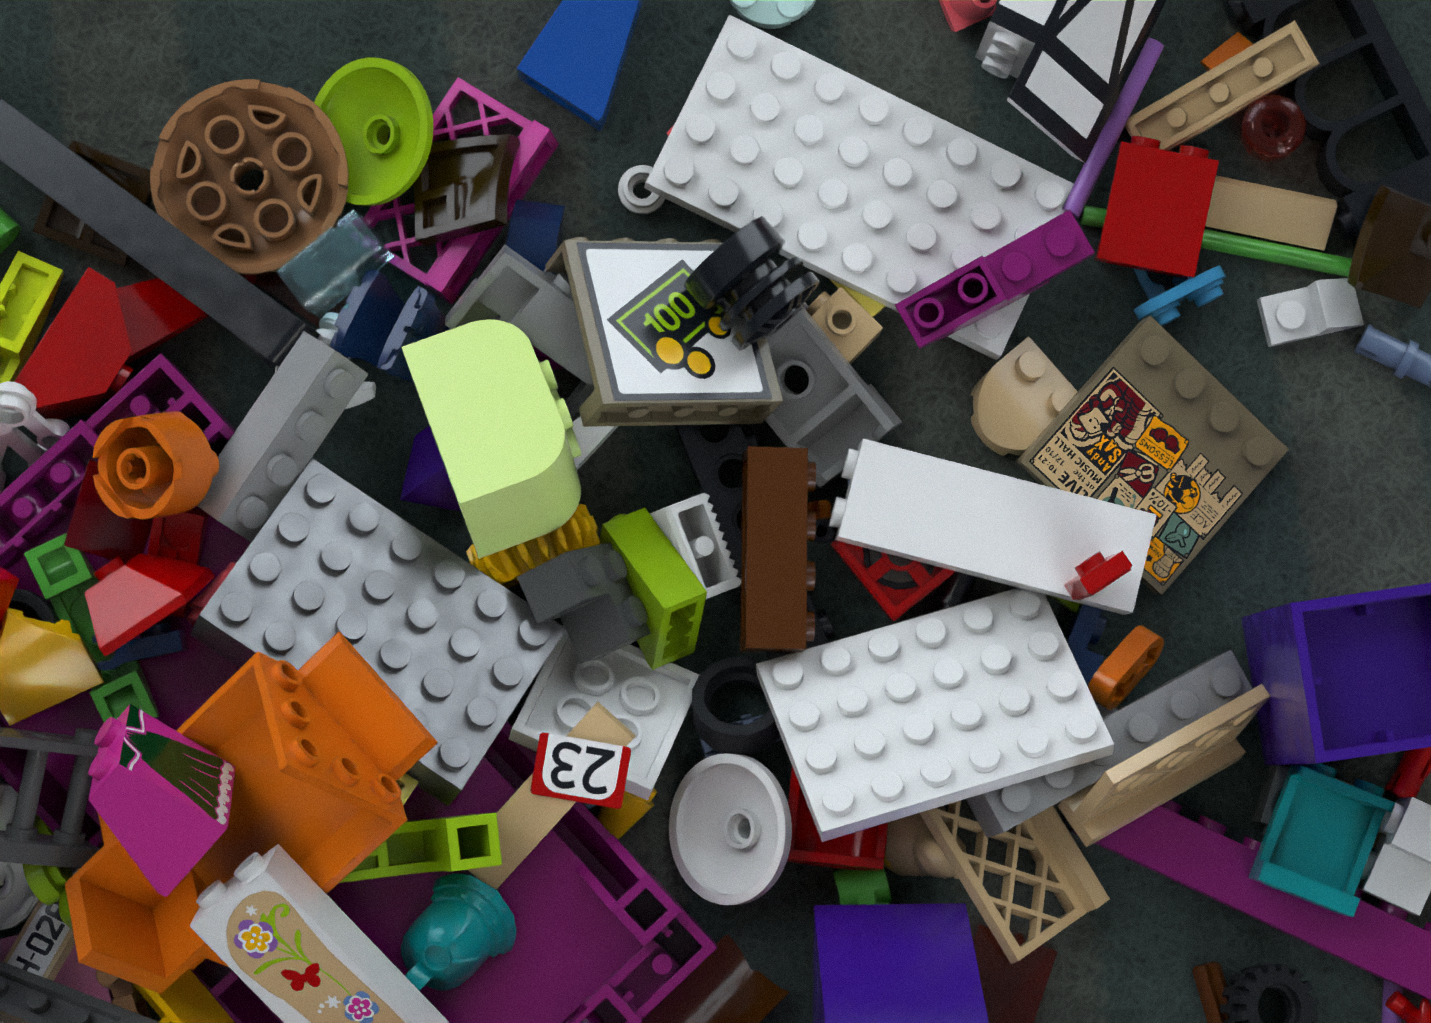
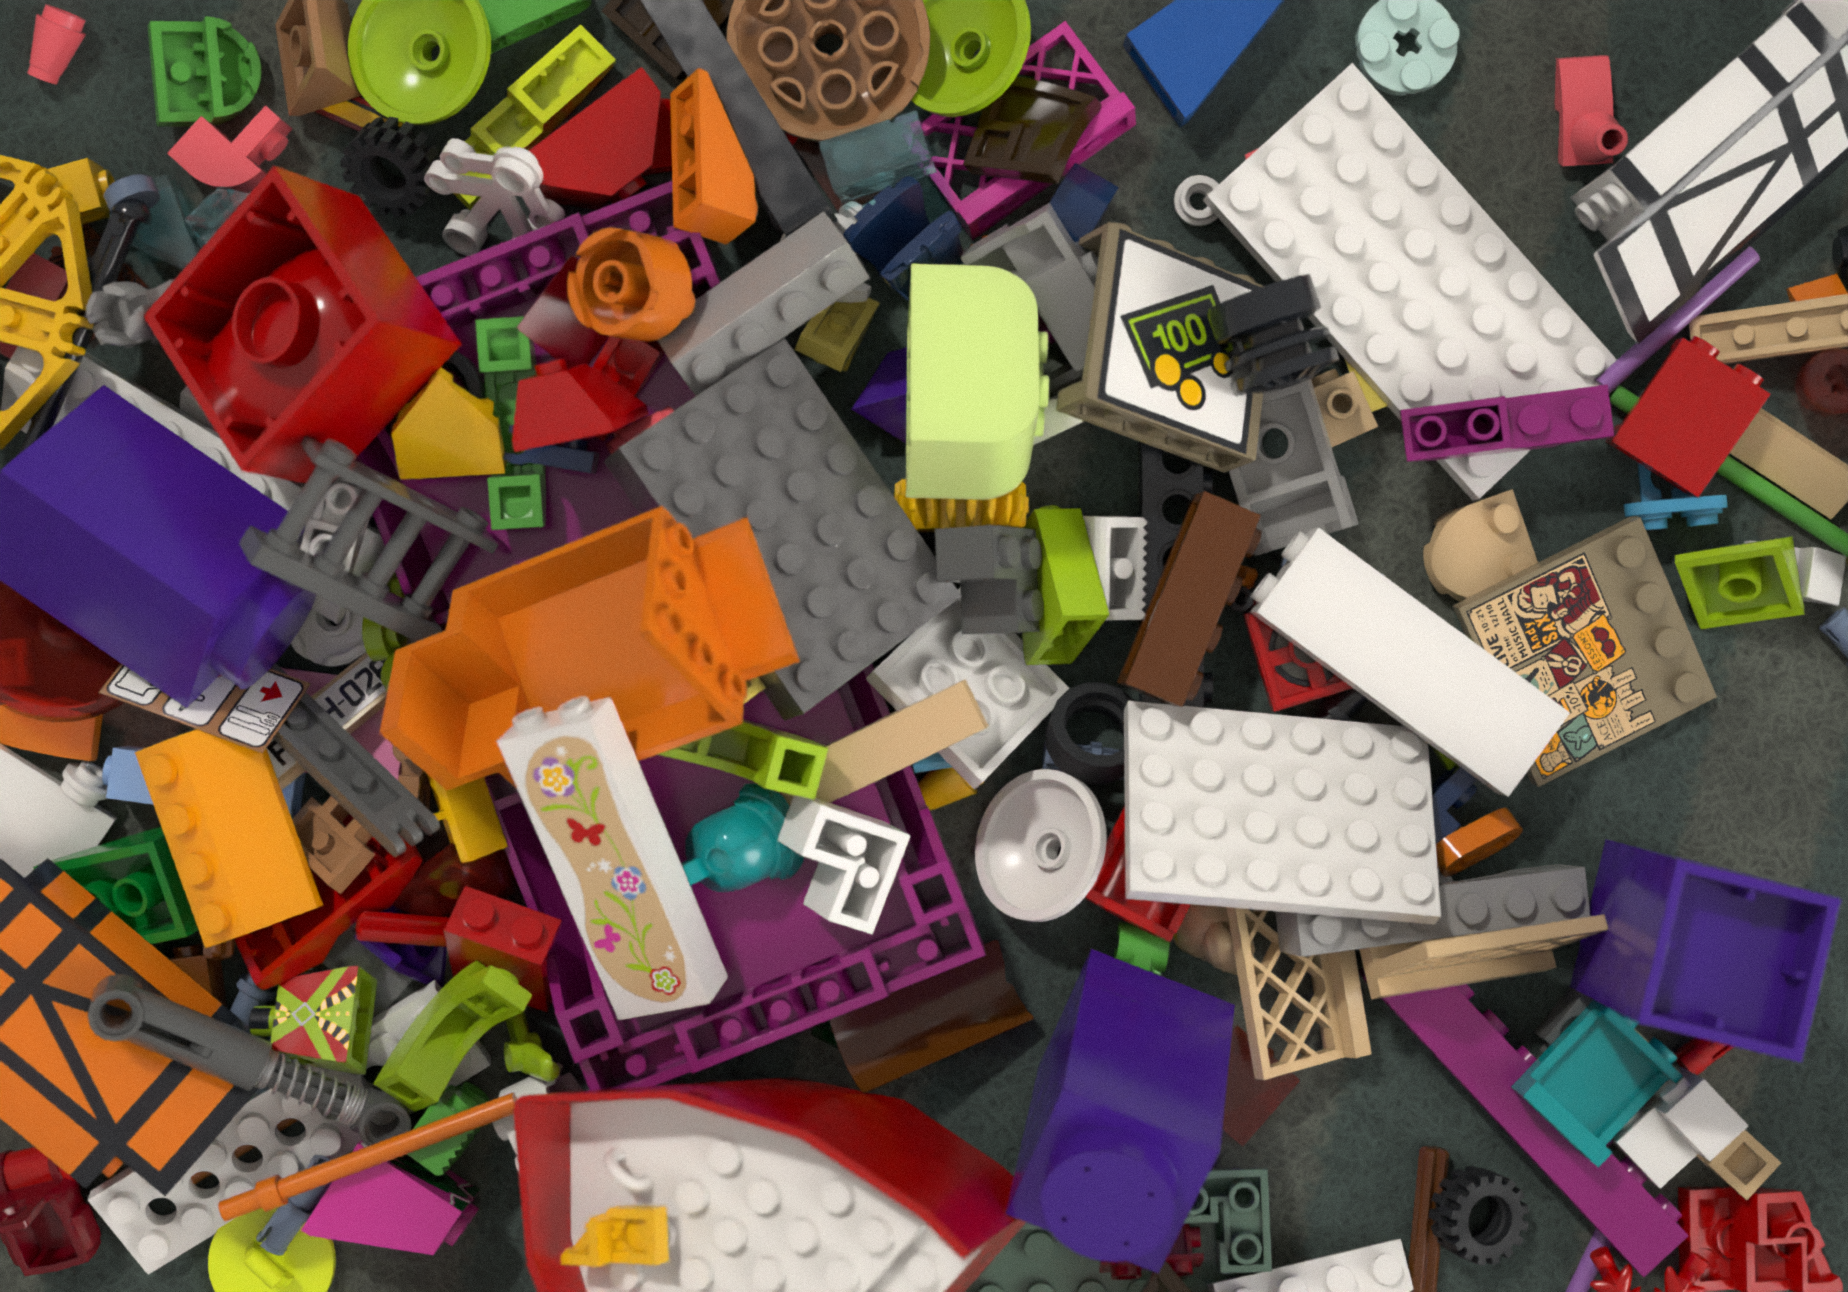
camera: 35 degrees right, 5 degrees up
(159, 795) = (516, 605): dark pink slope -> none
(183, 331) = (708, 165): none -> orange slope
(360, 436) = (837, 333): none -> light yellow slope
(563, 910) = (854, 858): none -> white brick
(580, 770) = (923, 738): sticker -> none
(1097, 573) = (1493, 750): red plate -> none
(1266, 337) = (1742, 582): none -> lime slope

